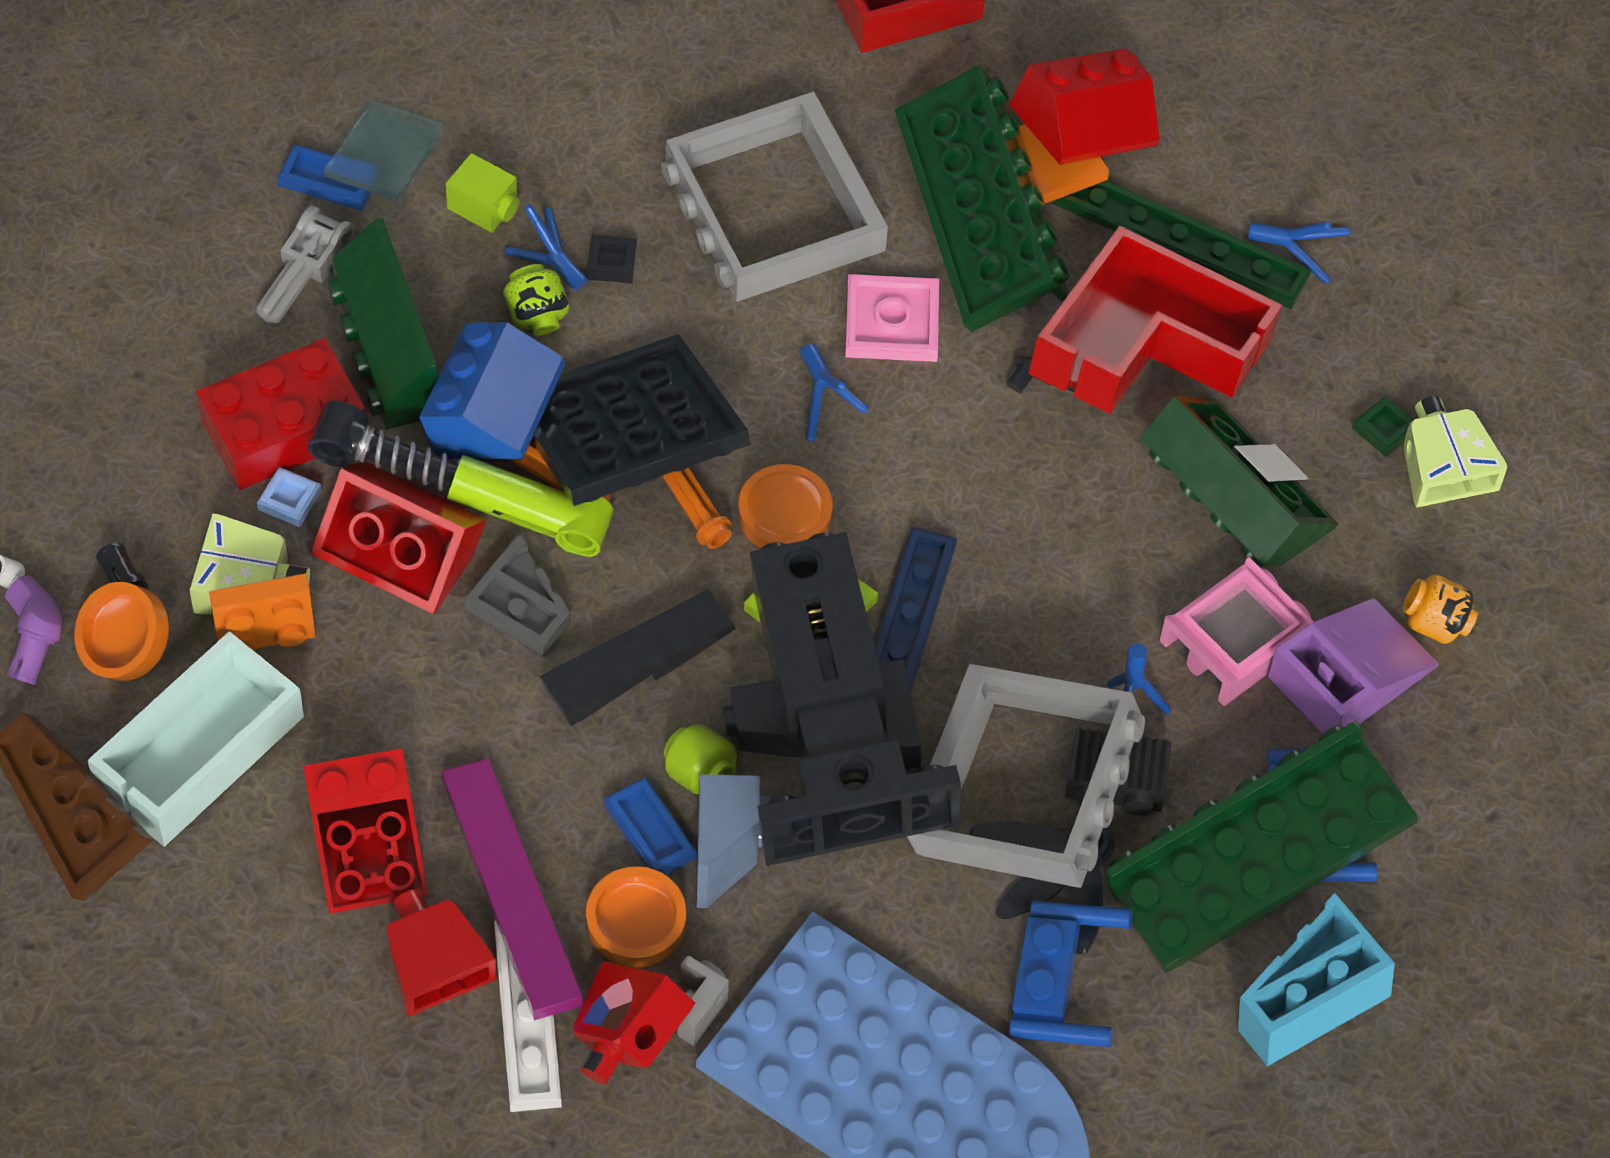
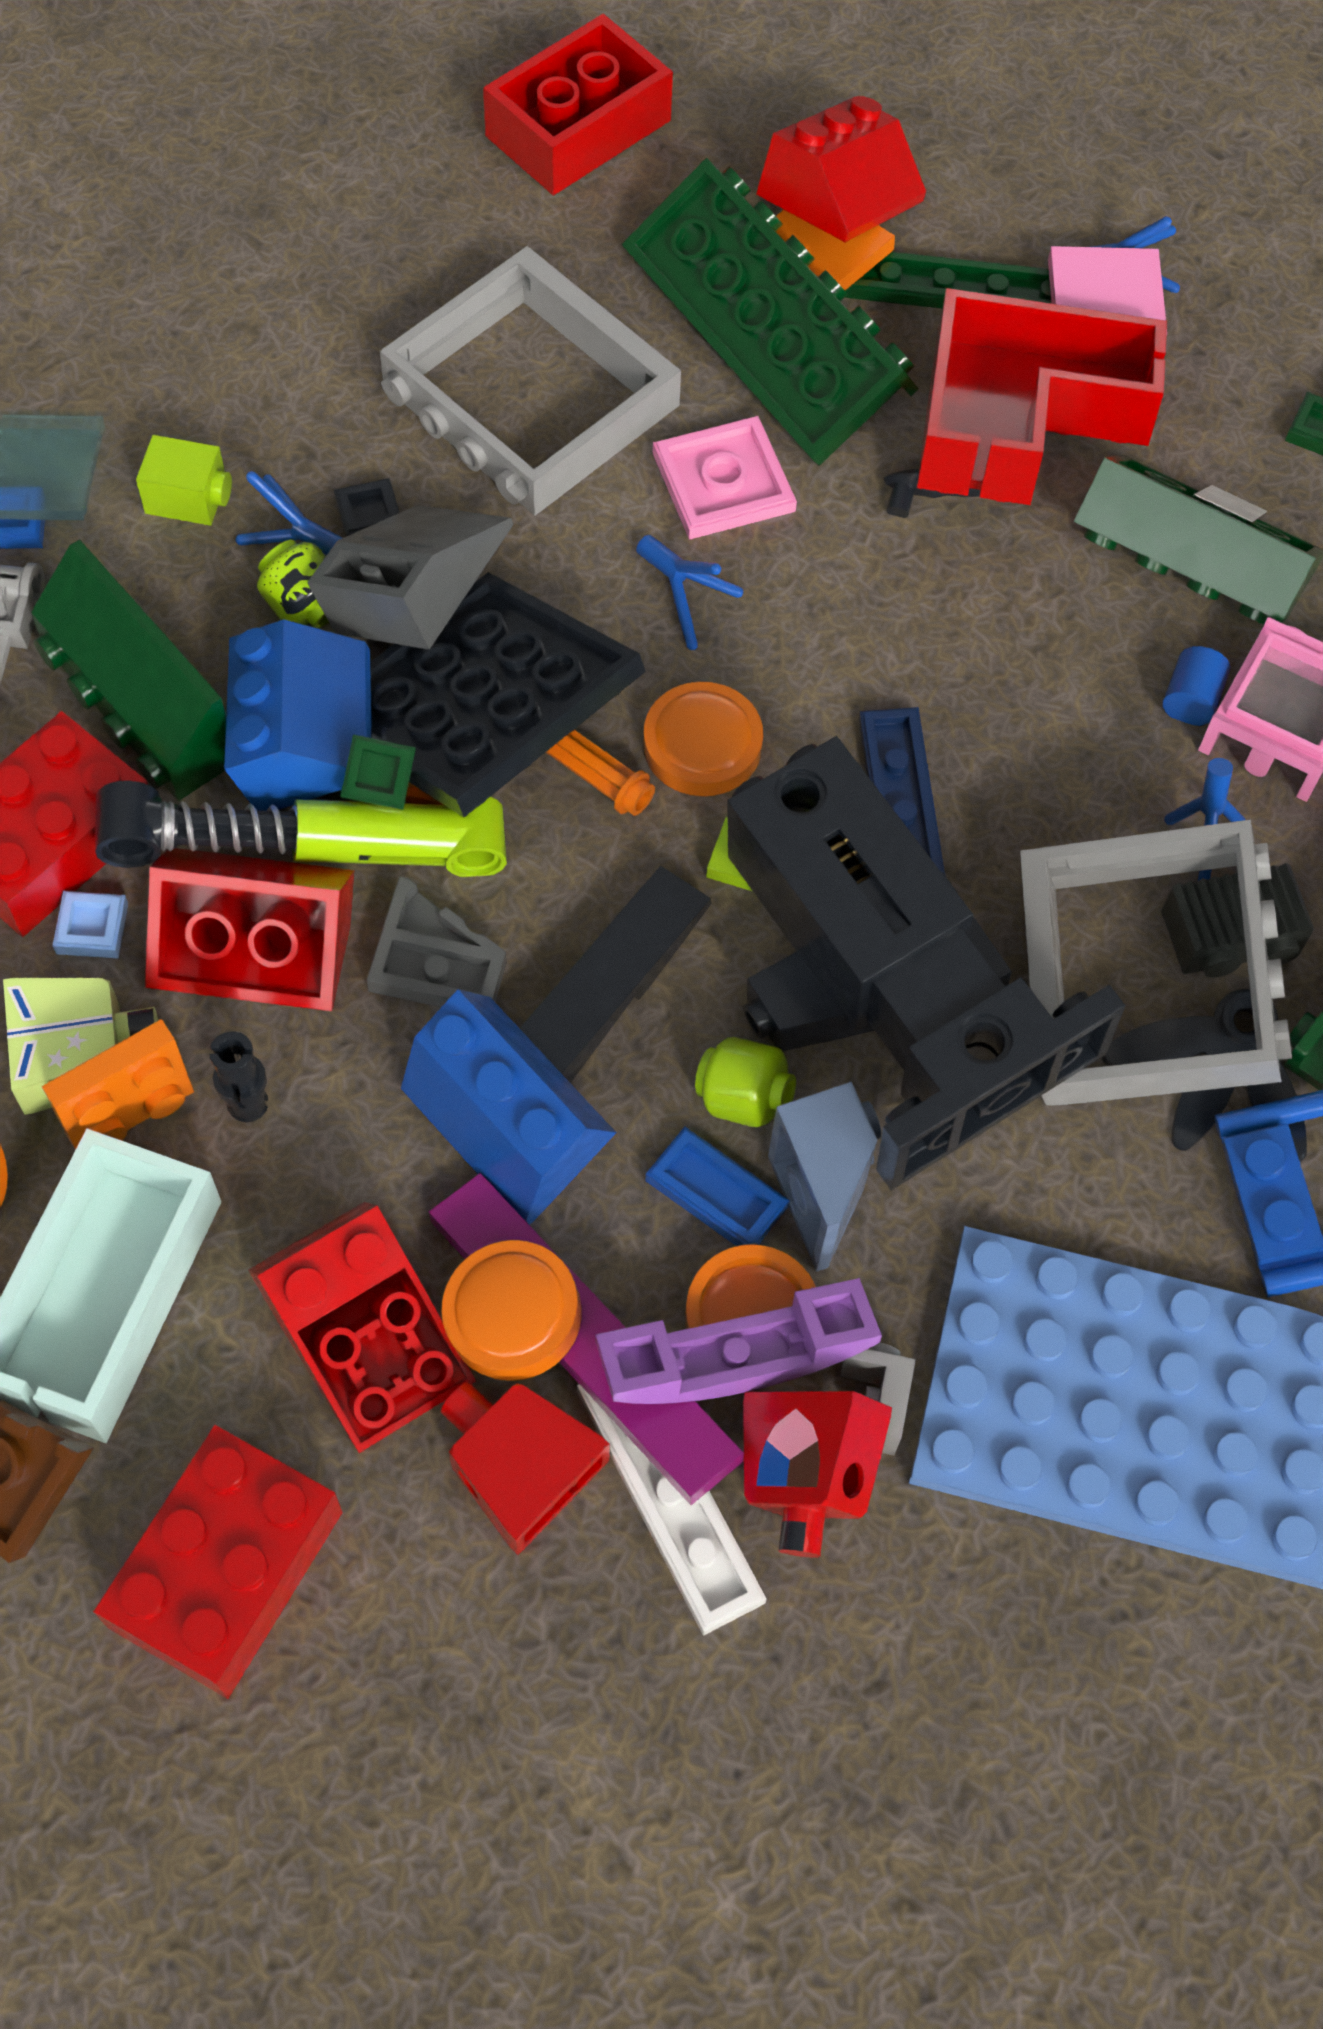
camera: 20 degrees left, 5 degrees up
(209, 943) = (220, 1561): none -> red brick
(346, 634) = (239, 1076): none -> black pin
(467, 852) = (511, 1310): none -> orange piece
(521, 712) = (502, 1103): none -> blue slope
(526, 454) = (378, 772): none -> dark green tile
(608, 934) = (739, 1353): none -> medium lavender slope
(615, 315) = (406, 573): none -> dark grey slope
(1176, 589) = (1196, 685): none -> blue piece
(1263, 261) = (1107, 280): none -> bright pink tile

